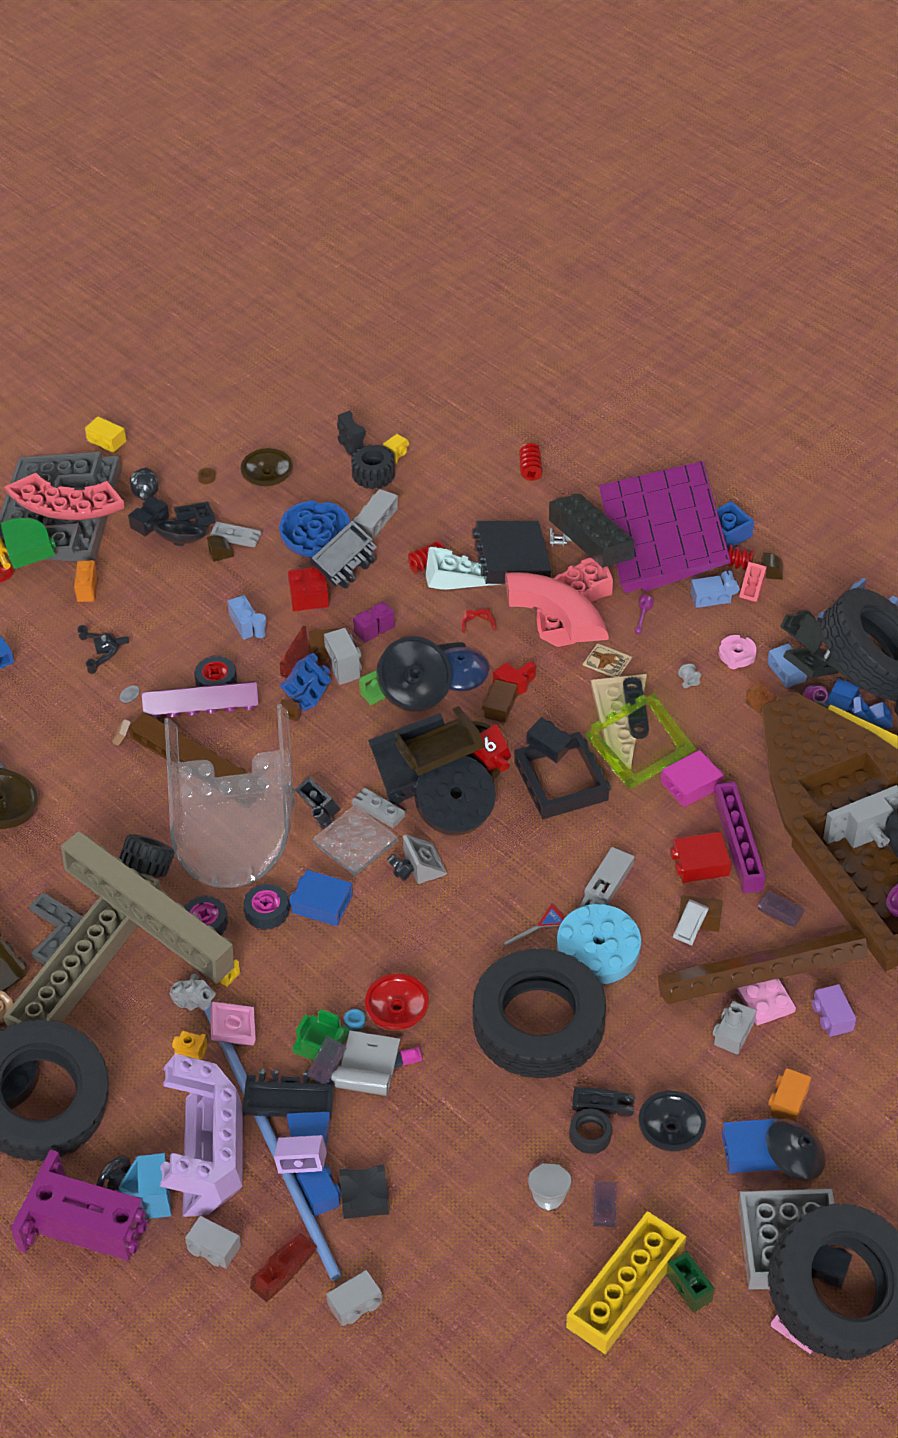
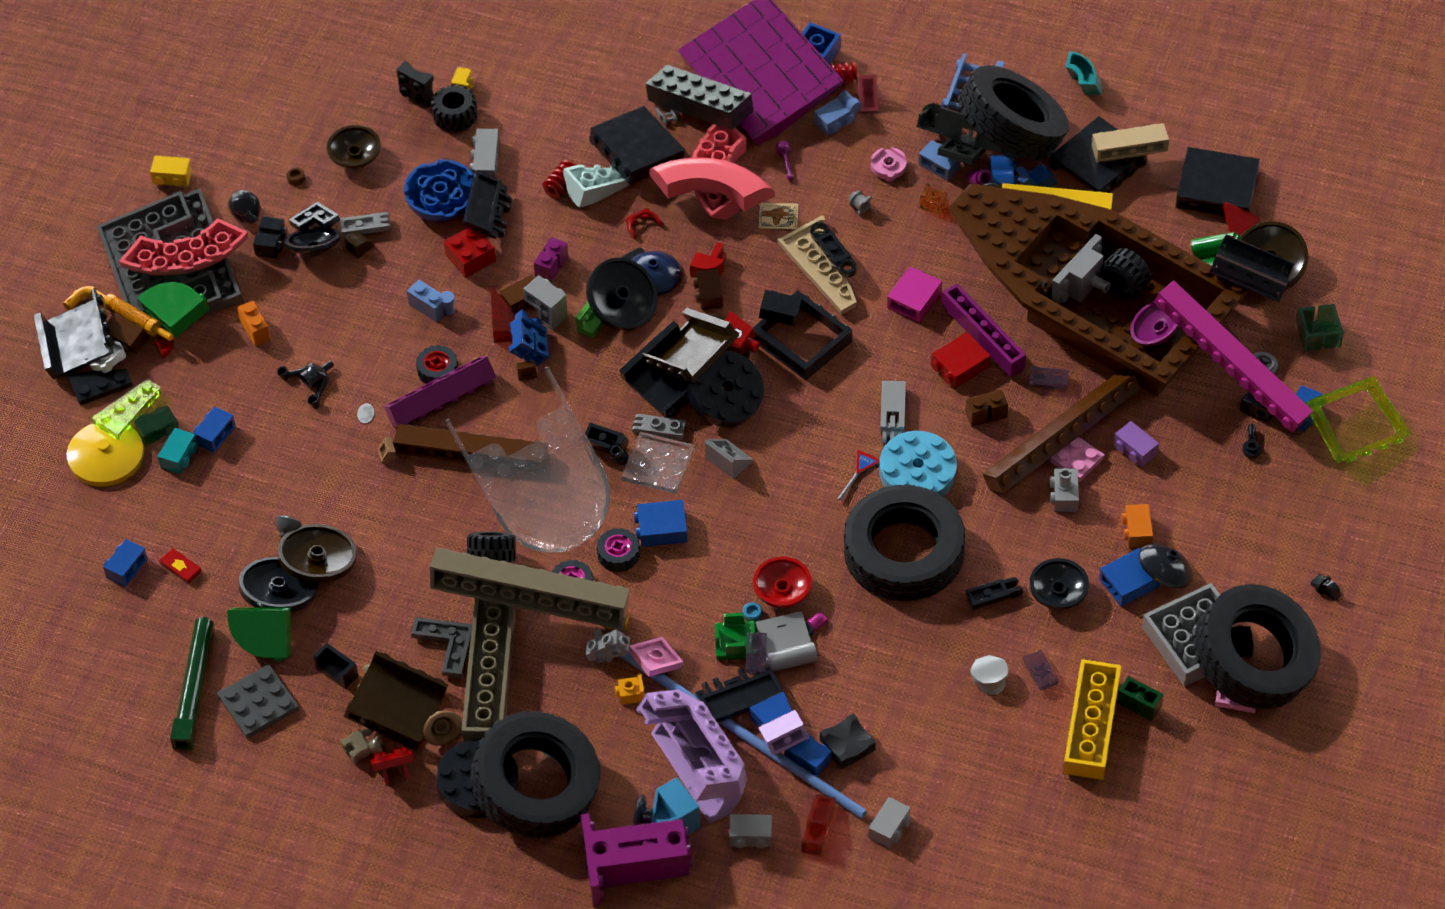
camera: 25 degrees left, 5 degrees up
(402, 867) = (716, 471): black piece -> none
(530, 462) = (599, 49): red piece -> none
(593, 1116) = (995, 631): black tyre -> none
(629, 778) = (892, 273): clear neon green windscreen -> none
(690, 922) = (985, 418): tile -> none
(774, 566) = (873, 67): dark brown brick -> none

